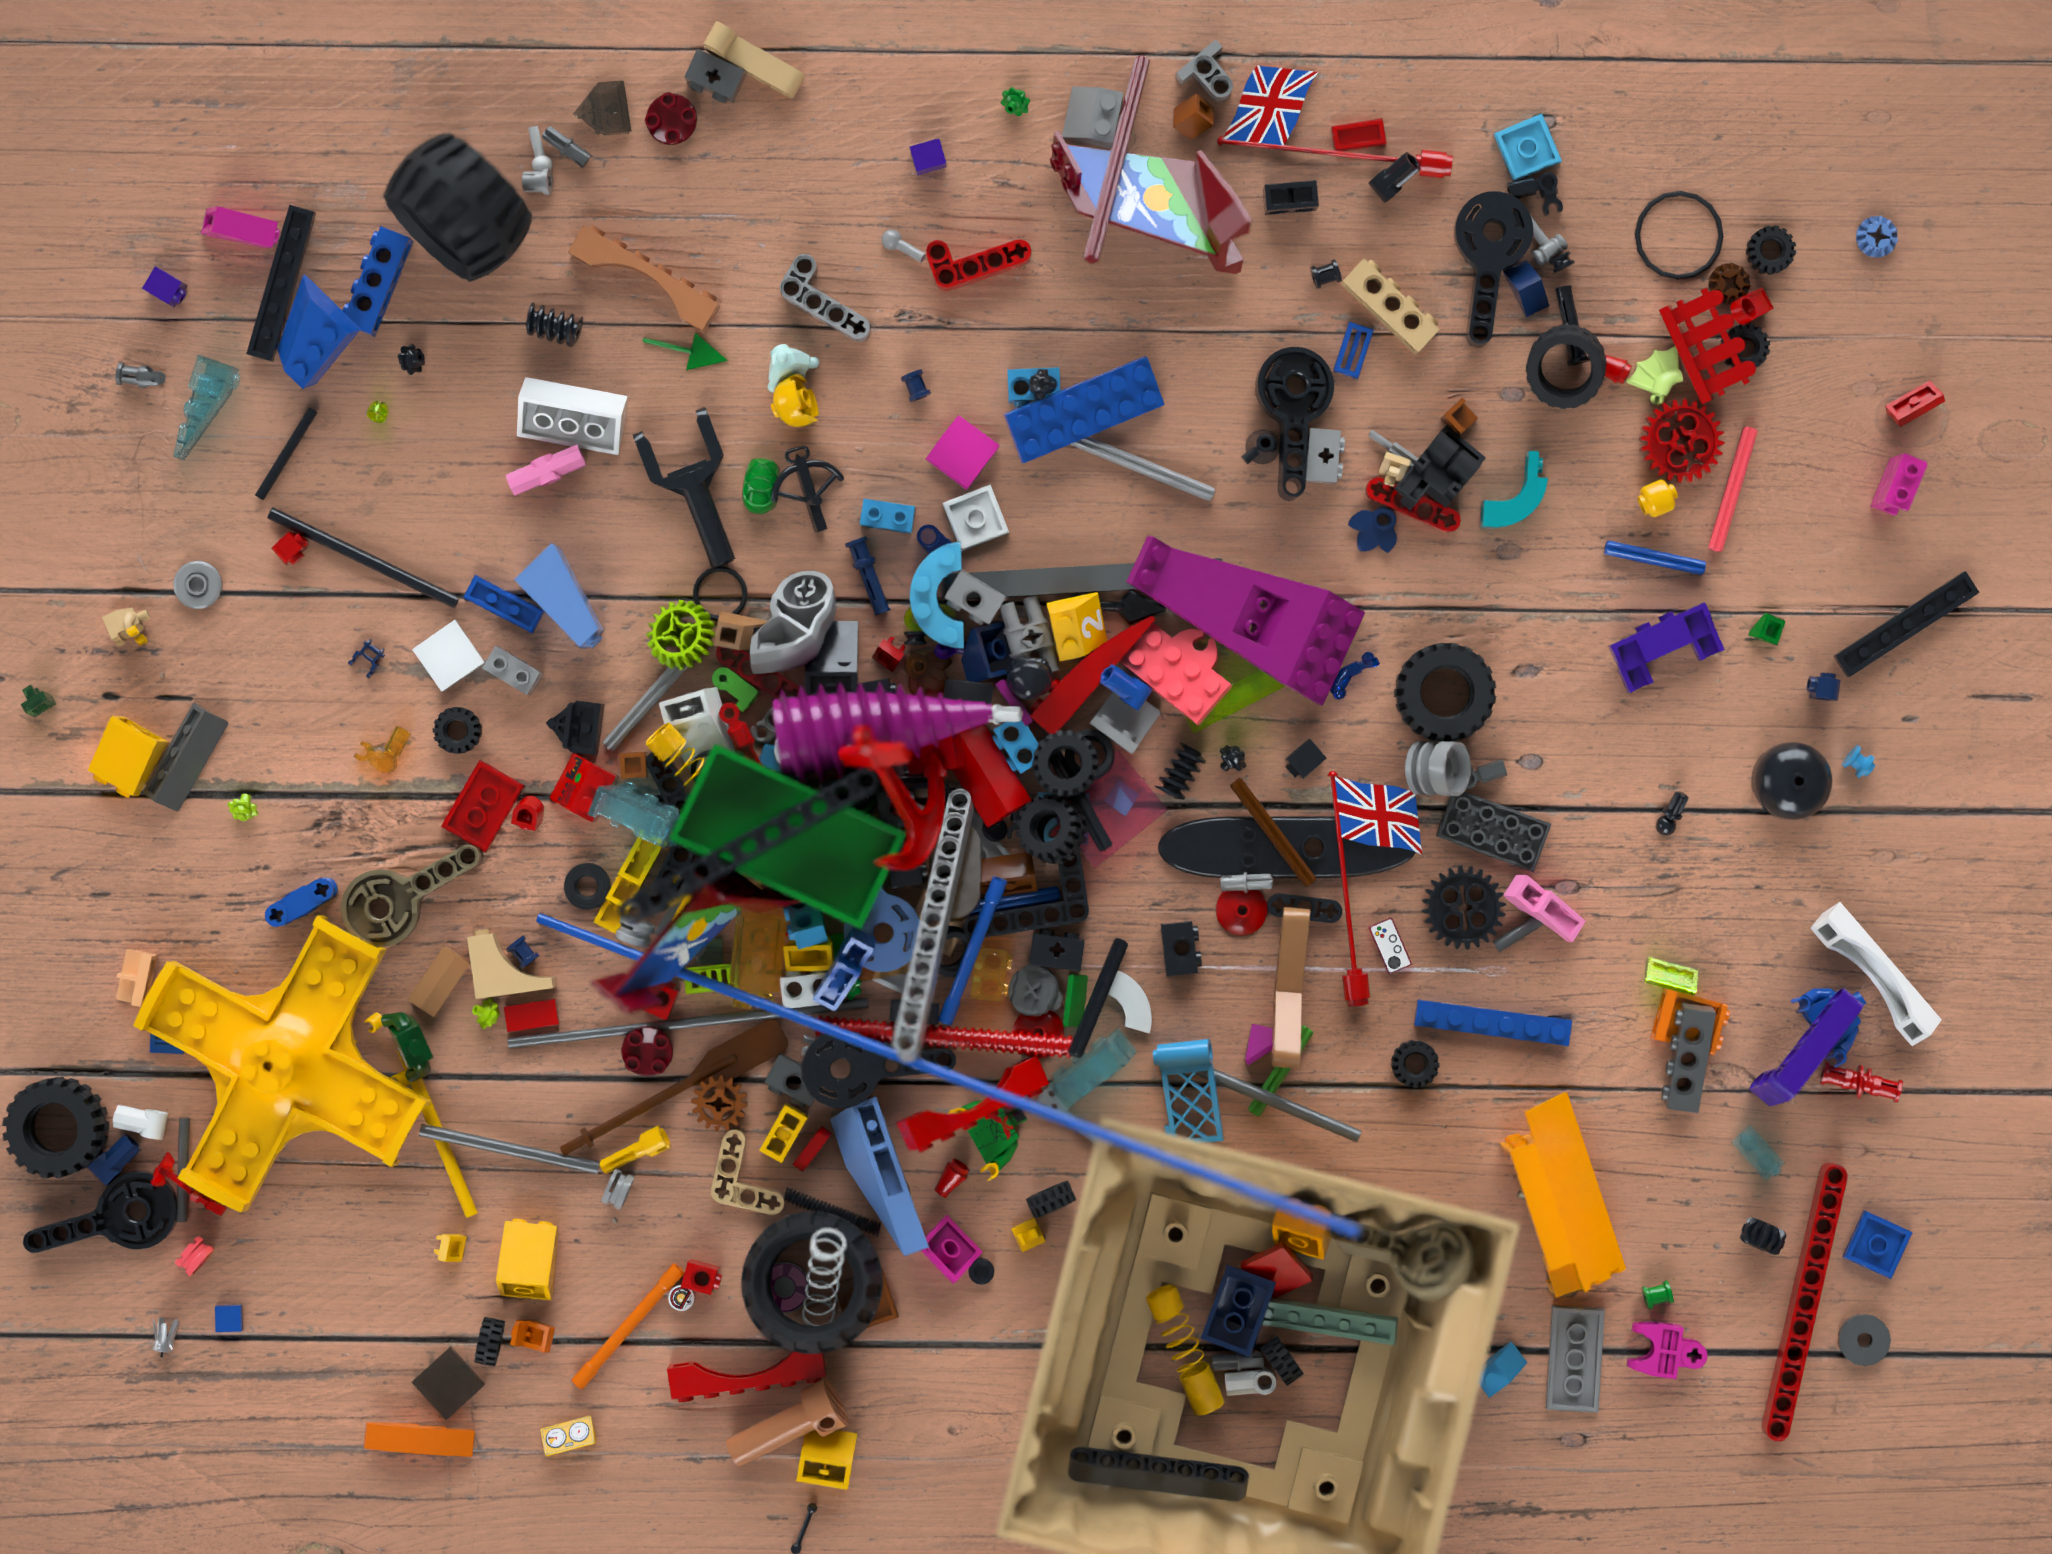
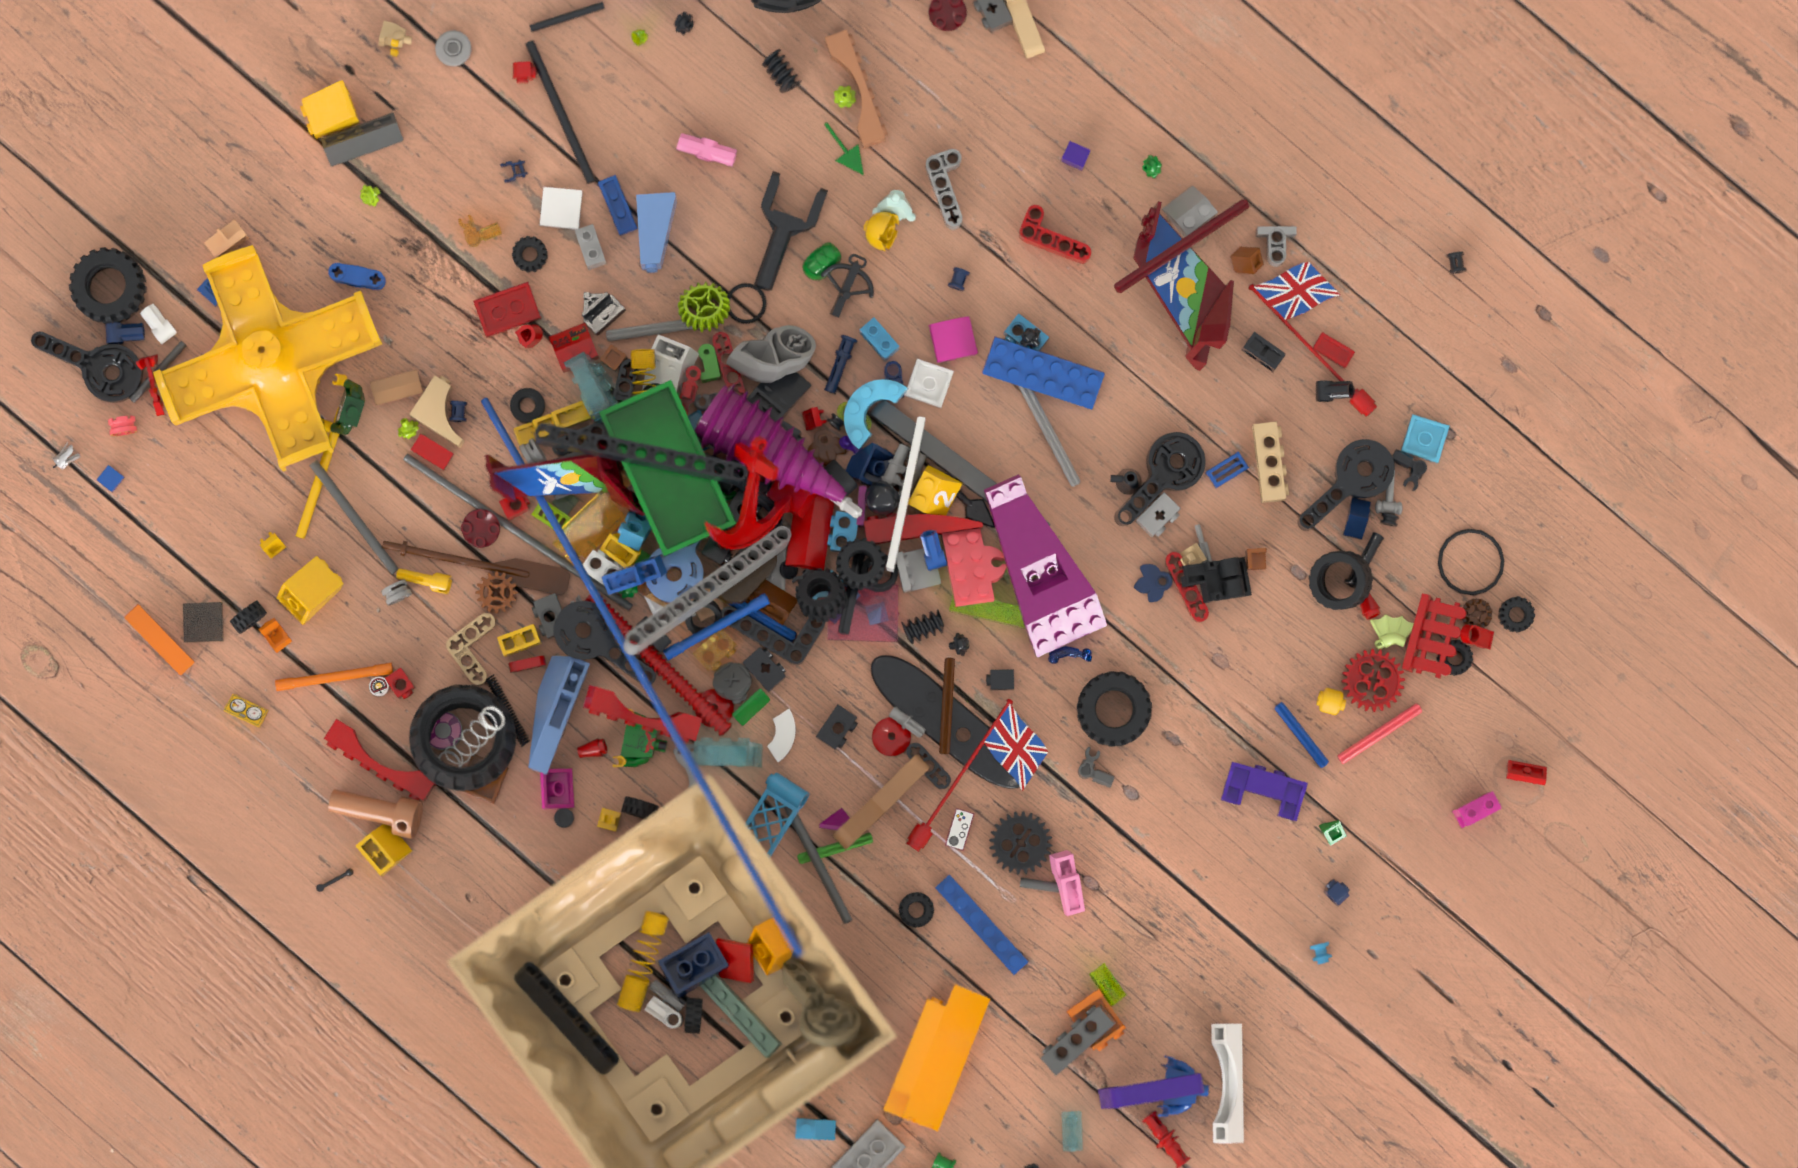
camera: 40 degrees right, 5 degrees down
(37, 701) = (305, 37): clear green tile -> none
(401, 896) = (416, 321): dark tan beam -> none
(571, 415) = (747, 131): white slope -> none
(640, 295) = (844, 96): none -> lime plant
(736, 630) = (736, 330): medium nougat slope -> none
(892, 240) = (1015, 185): light grey bar -> none
(990, 598) = (884, 414): light grey brick -> none
(1050, 653) = (905, 495): none -> white tile
(1098, 998) = (765, 715): black axle -> none
(1325, 274) = (1247, 412): black bush -> none
(1437, 768) = (1072, 748): light grey wheel -> none
(1494, 830) = (1076, 813): dark grey tile -> none
(1506, 513) = (1245, 639): teal arch -> none
(1666, 824) = (1178, 895): black axle -> none
(1775, 776) = (1258, 931): black cylinder -> none
(1867, 243) = (1575, 658): medium blue gear -> none
(1906, 624) = (1415, 896): black plate -> none

